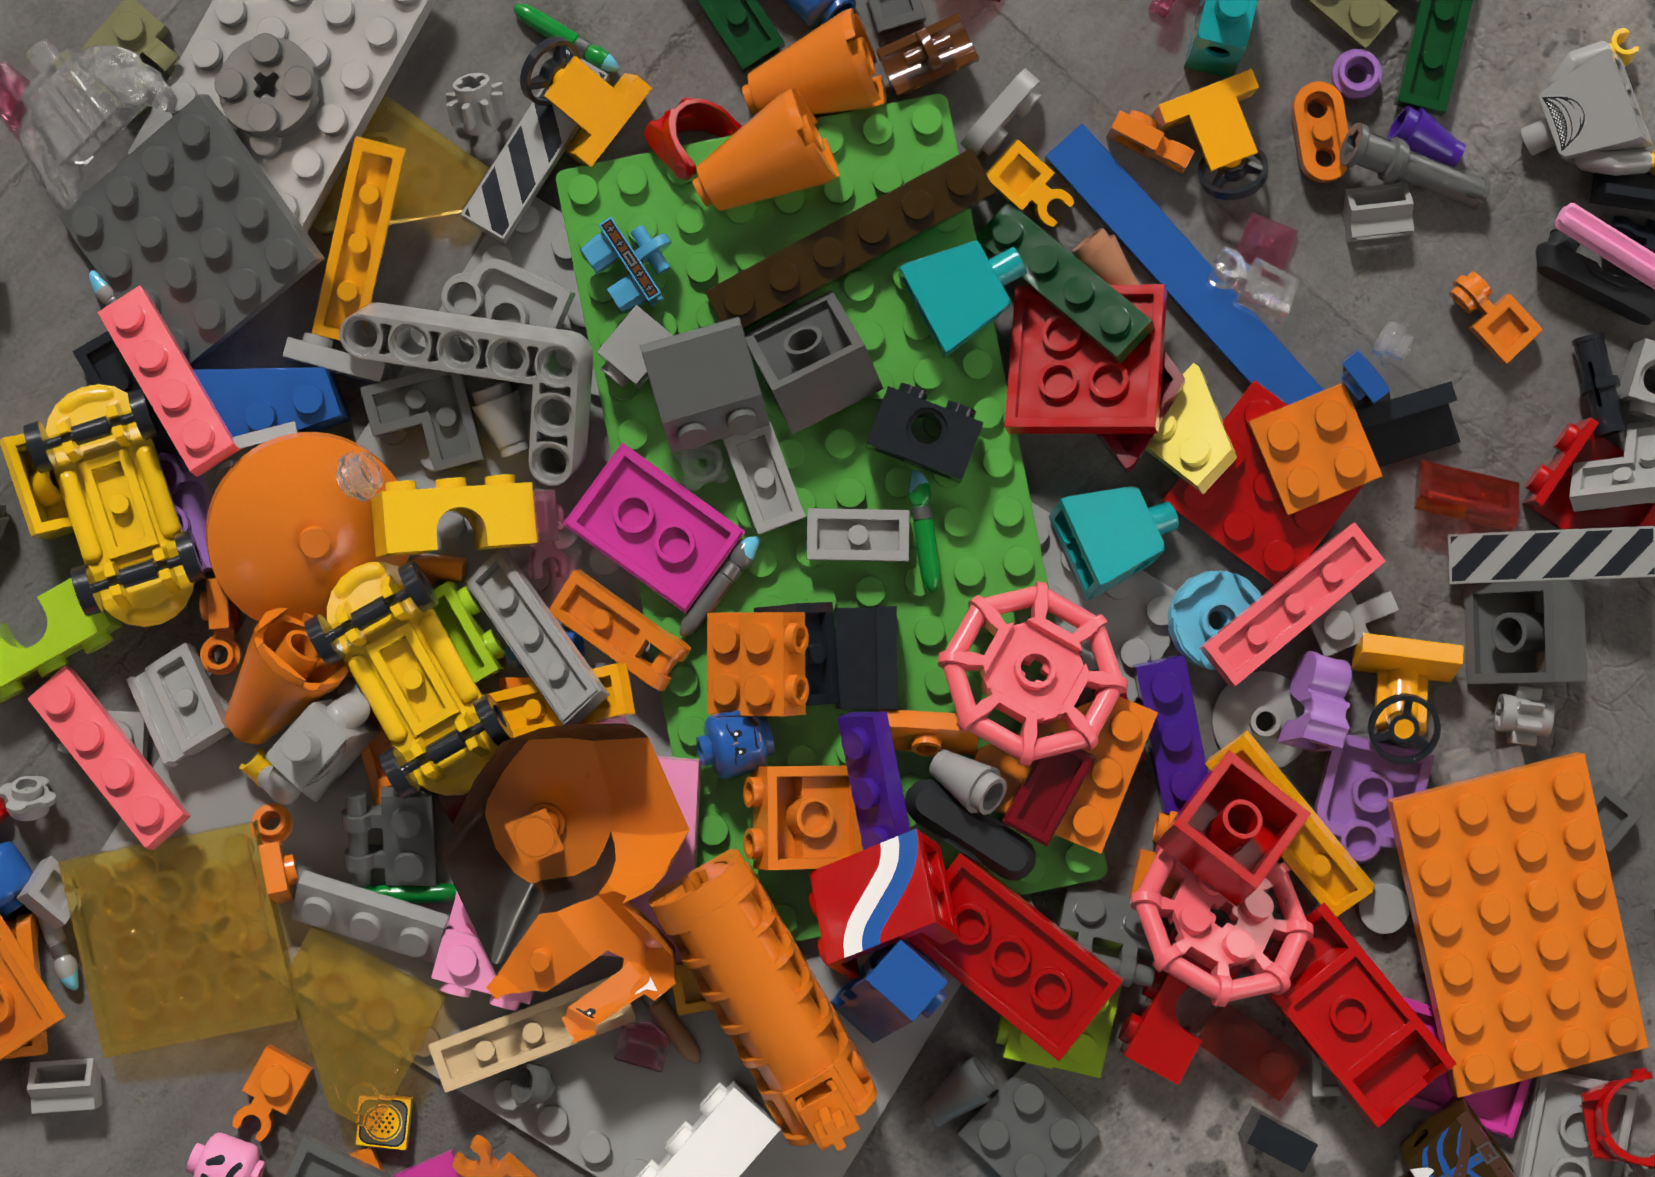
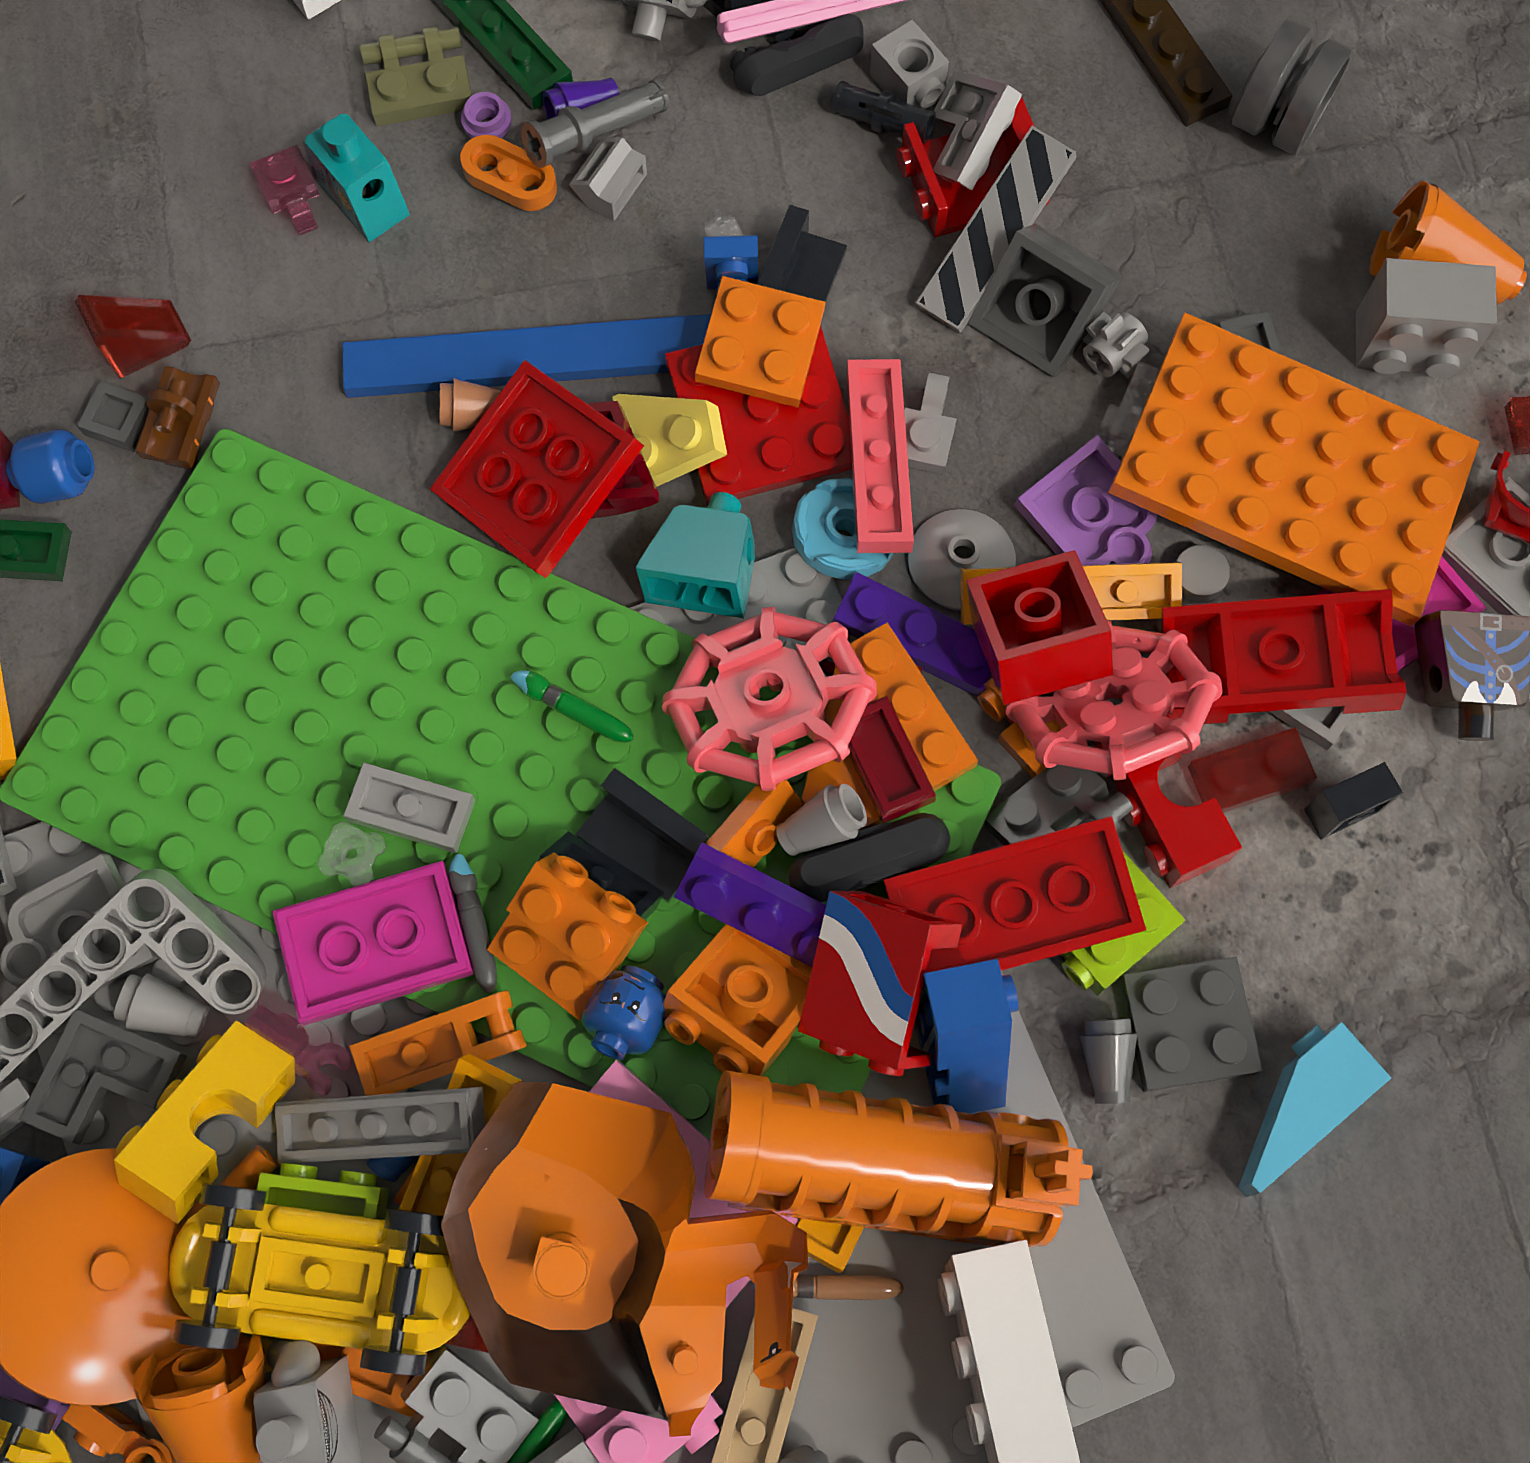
camera: 50 degrees left, 15 degrees down
(359, 476) = (84, 1174): clear plate -> none
(612, 246) = (146, 786): dark azure hips -> none
(623, 352) = (200, 832): light grey brick -> none
(642, 1046) = (848, 1331): clear pink slope -> none
(687, 115) = (54, 647): red helmet -> none
(705, 385) = (278, 788): dark grey slope -> none
(768, 157) = (136, 592): orange cone -> none
(813, 361) = (345, 688): dark grey slope -> none
(826, 66) = (113, 513): orange cone -> none
(852, 241) = (271, 591): dark brown plate -> none
(858, 535) = (526, 763): light grey plate -> none
(944, 457) = (474, 668): black brick -> none
(960, 291) = (388, 523): teal torso -> none
(1017, 99) = (282, 415): light grey plate -> none
(1023, 179) = (346, 421): light orange plate -> none
(1068, 283) = (458, 439): dark green plate -> none
(1140, 135) = (397, 304): orange plate -> none
(1220, 133) = (440, 236): light orange piece -> none
(1259, 285) = (591, 300): clear plate -> none
(1266, 240) = (563, 279): clear pink slope -> none
(1321, 688) = (1003, 499): medium lavender leg -> none
(1402, 688) = (1003, 413): light orange piece -> none
(1467, 495) = (894, 265): clear red plate -> none
(1503, 326) = (777, 147): orange plate -> none

